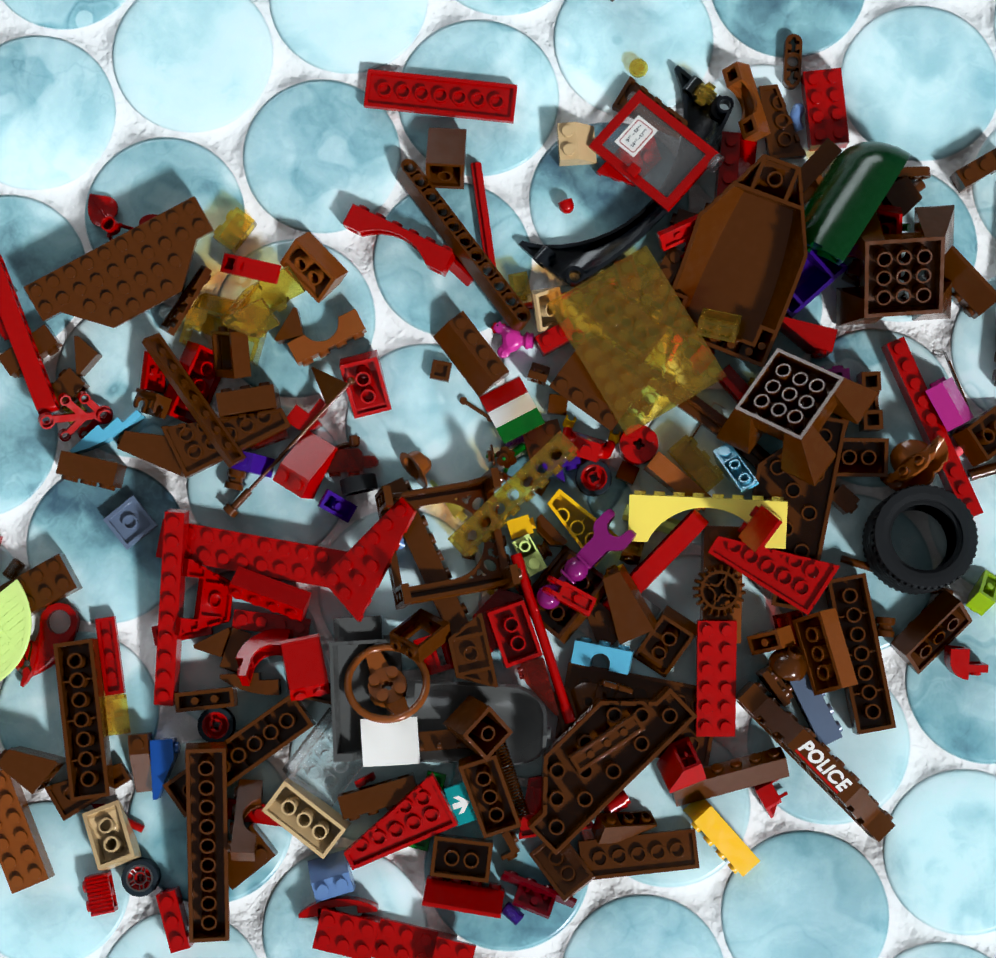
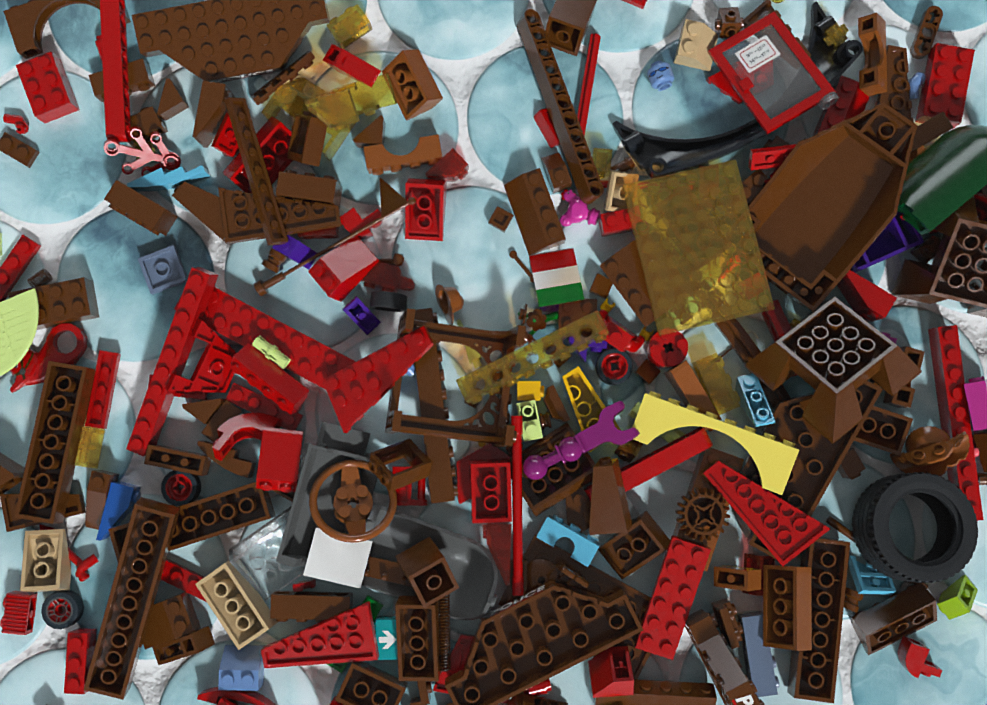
camera: 20 degrees right, 0 degrees up
(129, 354) = (210, 111): none -> reddish brown slope
(148, 829) = (83, 566): none -> red arm
(153, 403) = (221, 164): reddish brown hinge -> none
(243, 842) = (164, 611): reddish brown arch -> none
(263, 567) = (271, 352): none -> yellowish green pin
(268, 874) = (184, 646): none -> reddish brown slope
(365, 223) = (475, 59): red arch -> none
(375, 337) = (449, 168): none -> clear red slope
(472, 653) = (445, 498): reddish brown wing -> none
(480, 308) = (556, 172): none -> reddish brown slope
(538, 373) = (592, 251): reddish brown bracket -> none
(542, 282) = (625, 165): none -> reddish brown pin
(550, 184) = (660, 75): none -> medium blue head
(566, 206) = (669, 101): red hinge -> none
(571, 596) = (557, 474): red hinge -> none
(599, 116) = (728, 22): none -> reddish brown brick
(606, 742) = (547, 628): reddish brown tile -> none
(718, 325) = (783, 257): clear yellow hinge -> none
(759, 528) = (765, 468): red slope -> none
(788, 663) = (748, 607): reddish brown piece -> none
(896, 603) = (869, 580): none -> medium azure wing

